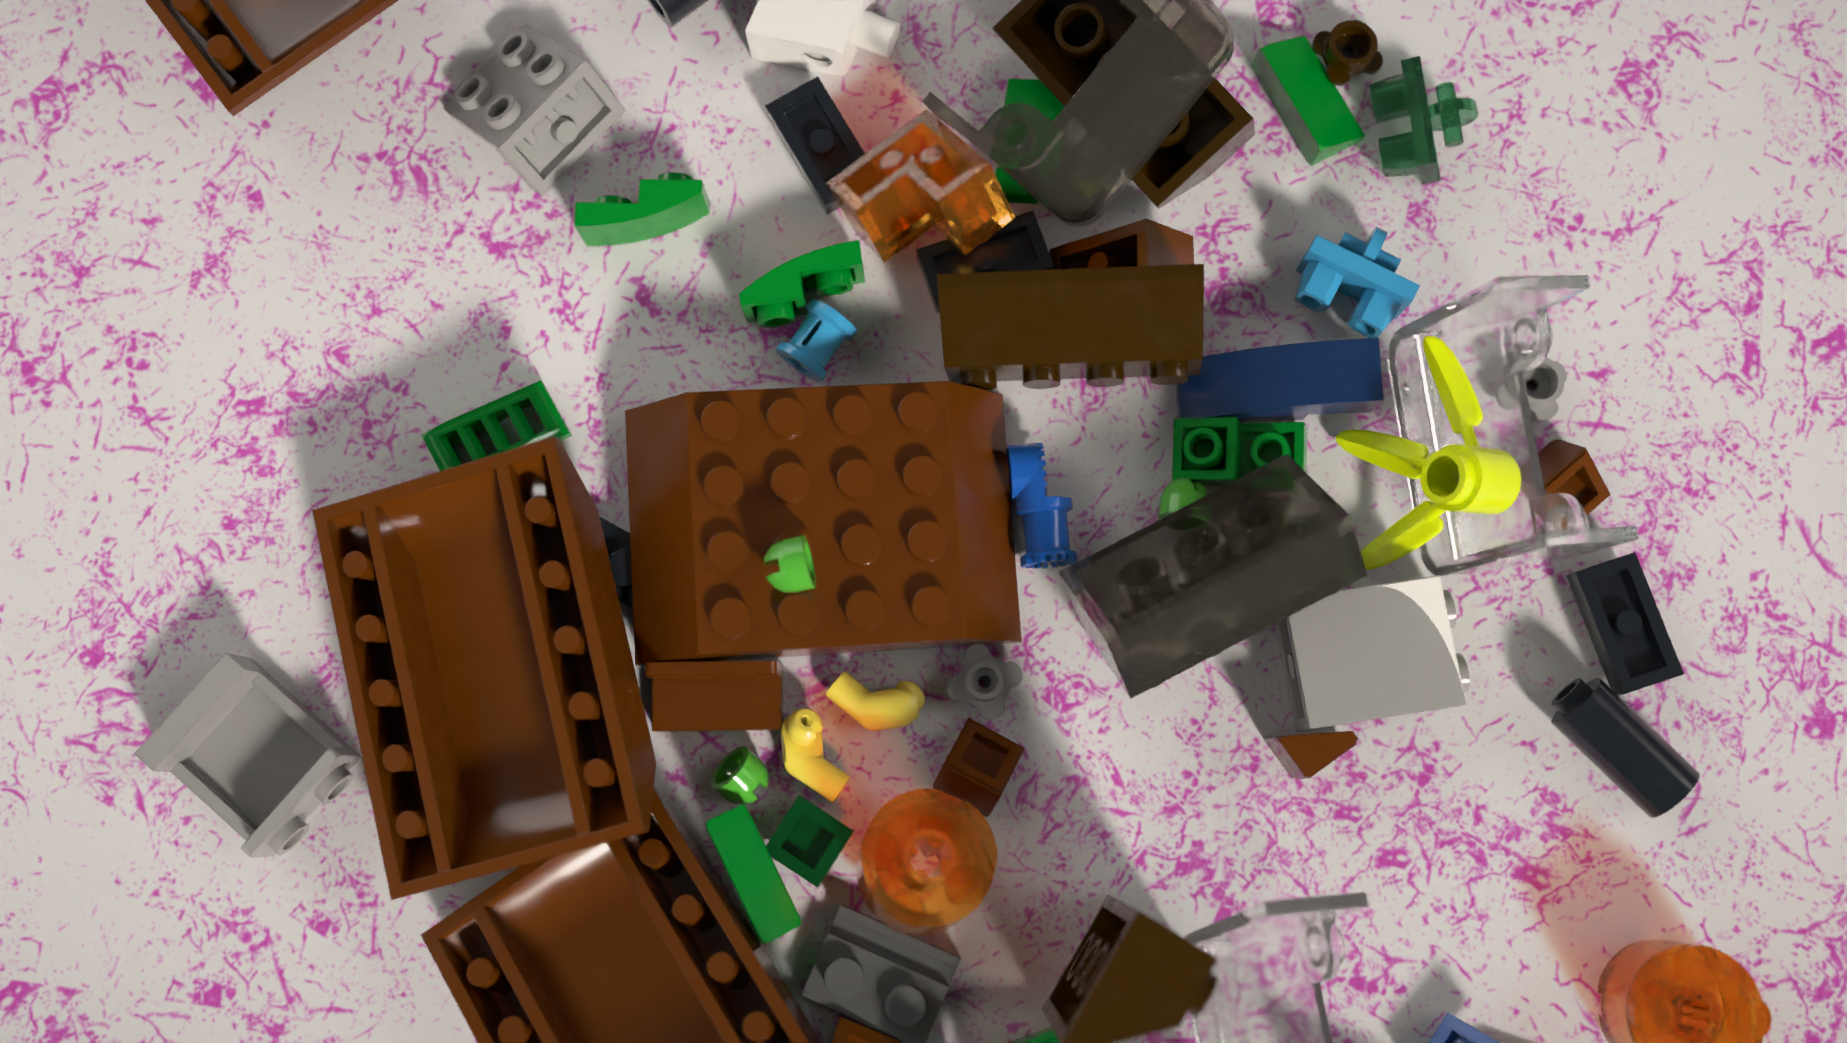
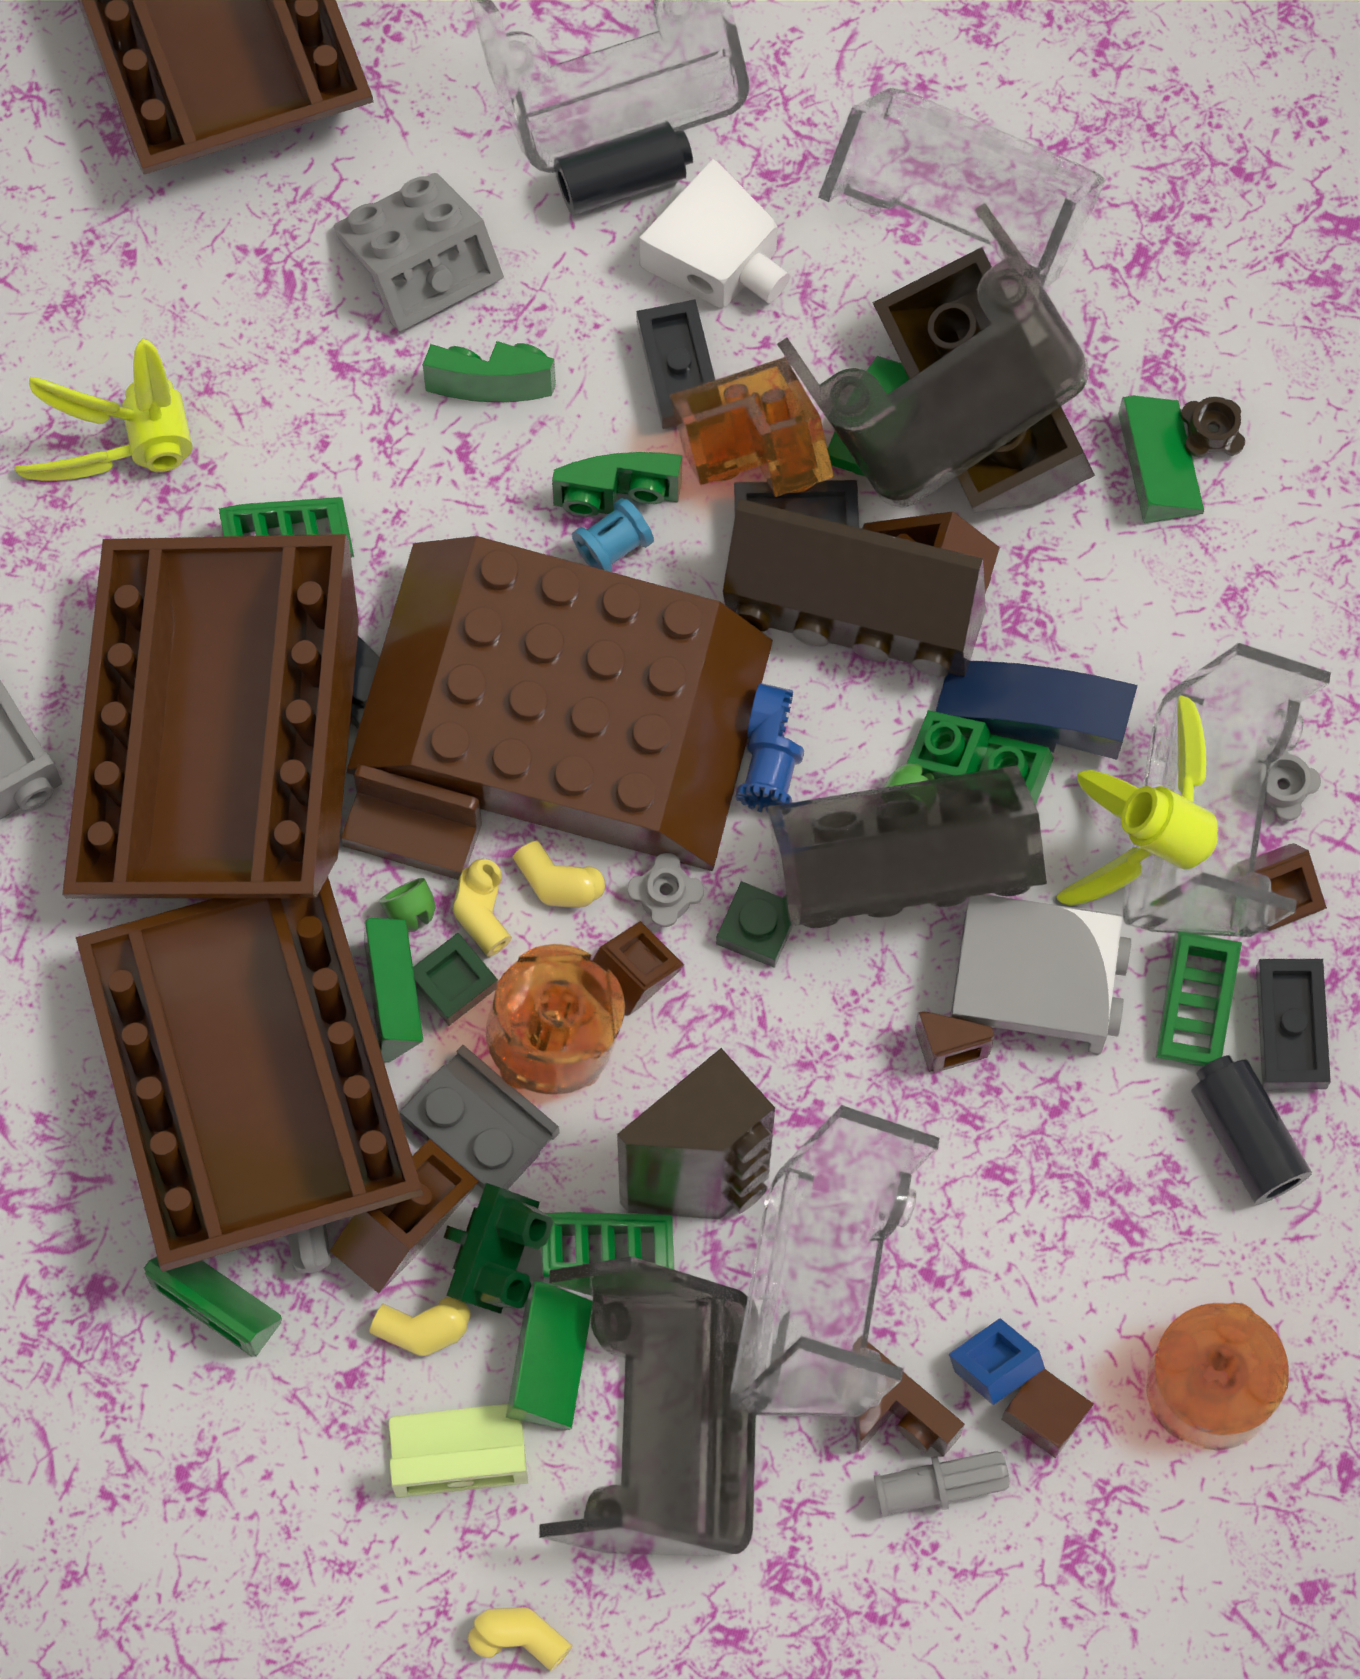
camera: 15 degrees right, 10 degrees down
(323, 354) = (151, 414): none -> neon yellow plant
(795, 565) = (520, 707): bright green hinge -> none
(1081, 686) = (755, 925): none -> dark green plate
(1359, 272) = (1149, 628): dark azure hips -> none
(1407, 96) = (1266, 511): clear green hips -> none
(1545, 598) = (1206, 947): none -> green slope

